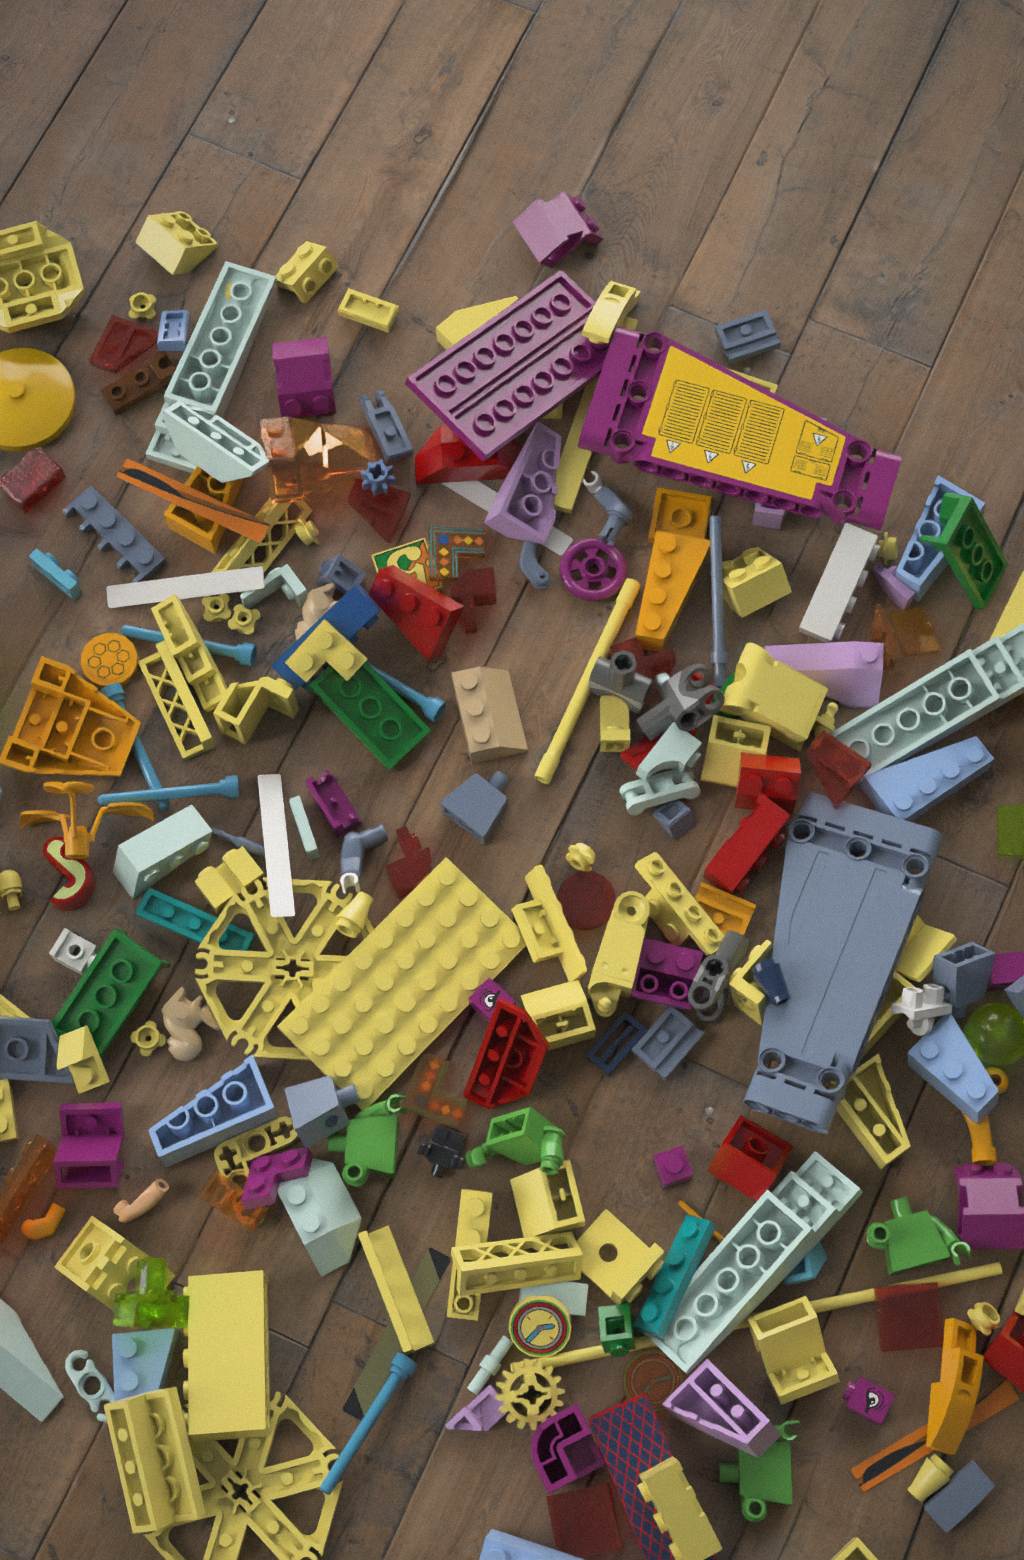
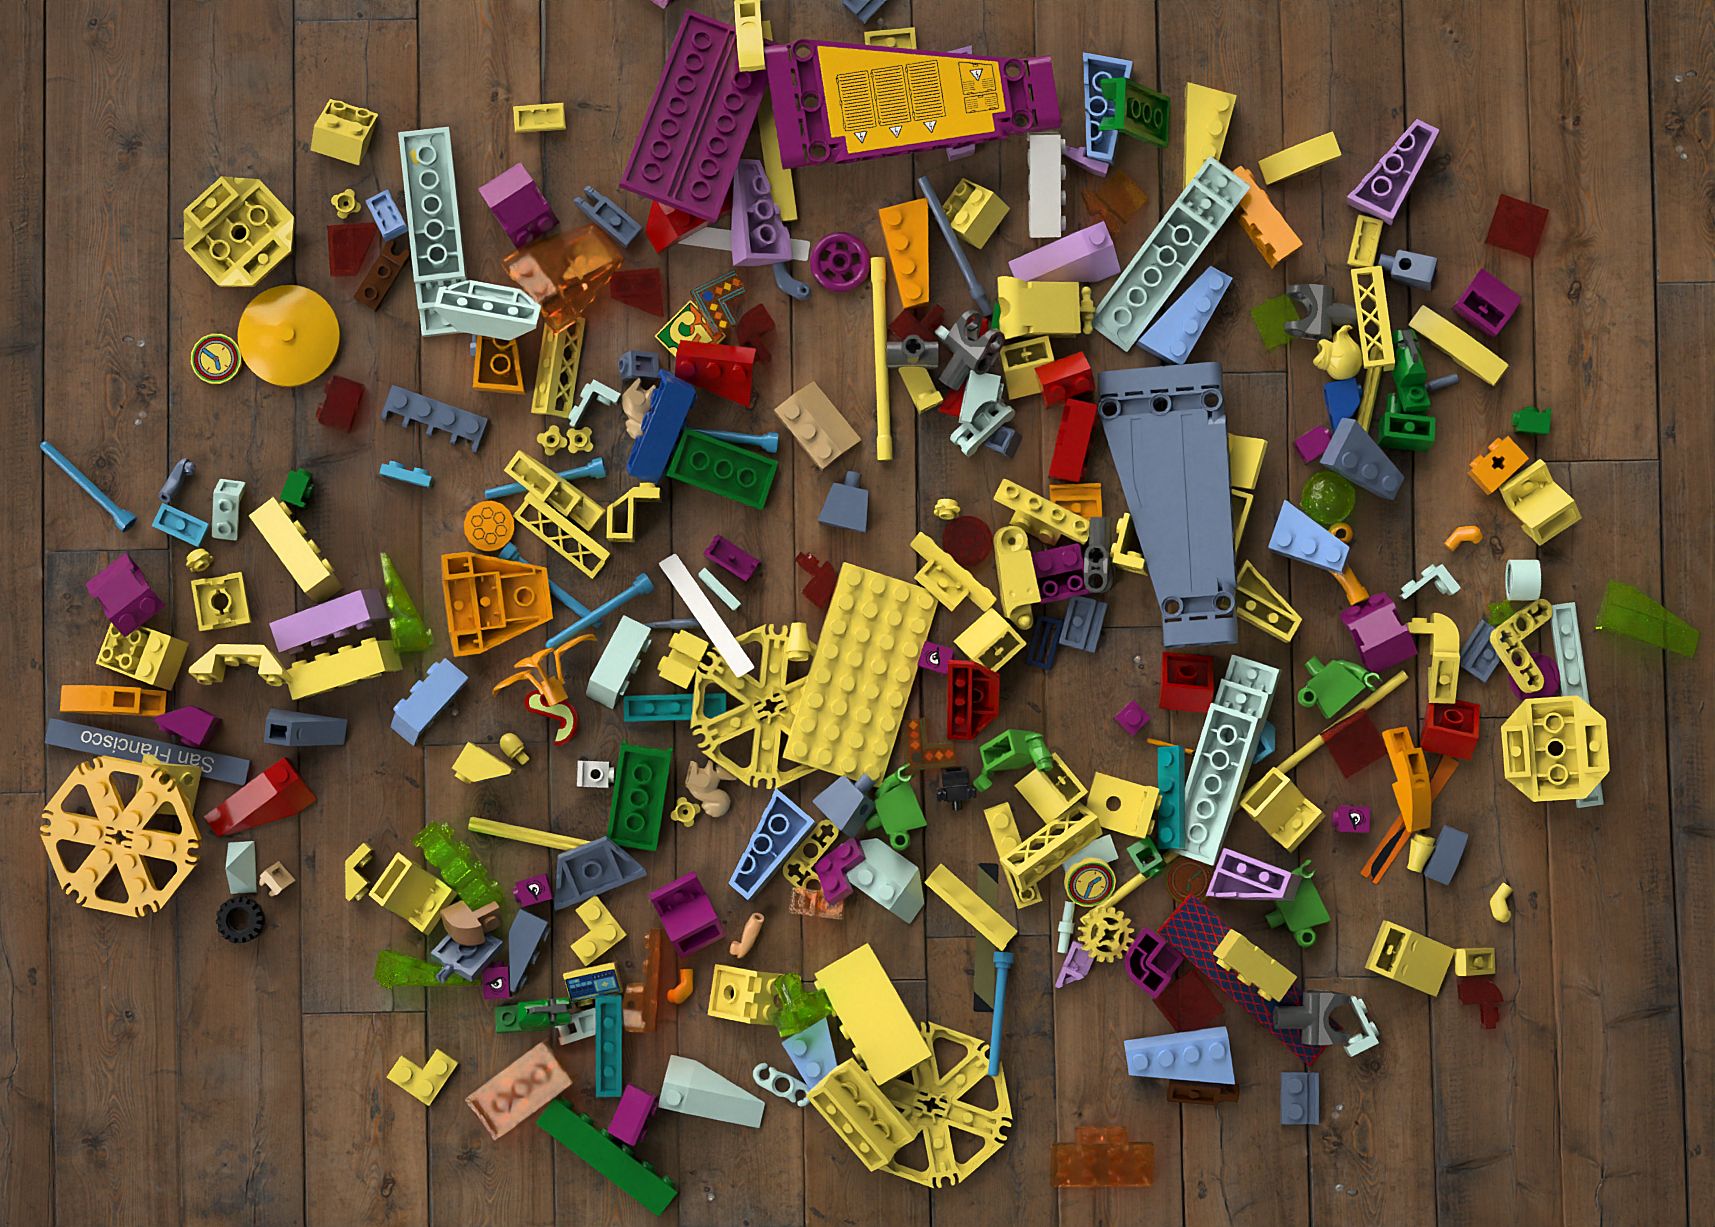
camera: 35 degrees left, 15 degrees up
(82, 1057) = (645, 853): light yellow slope -> none
(185, 587) = (519, 437): white sticker -> none
(193, 500) = (490, 363): orange sticker -> none
(307, 271) = (468, 105): light yellow bracket -> none
(307, 531) = (592, 341): light yellow plate -> none
(324, 646) = (666, 441): light yellow plate -> none
(353, 852) = (769, 594): sand blue arm -> none
(384, 480) = (622, 267): medium blue gear -> none
(469, 319) = (633, 94): light yellow slope -> none
(617, 509) = (833, 201): sand blue arm -> none
(680, 513) = (888, 182): light orange tile -> none
(771, 980) = (1143, 545): dark blue cone -> none
(836, 767) = (1113, 344): clear red wing -> none
(888, 548) = (1069, 131): light yellow plate -> none
(922, 1007) = (1264, 508): white hips -> none
(963, 974) = (1283, 466): sand blue torso -> none
(984, 1317) = (1409, 717): light yellow plate -> none

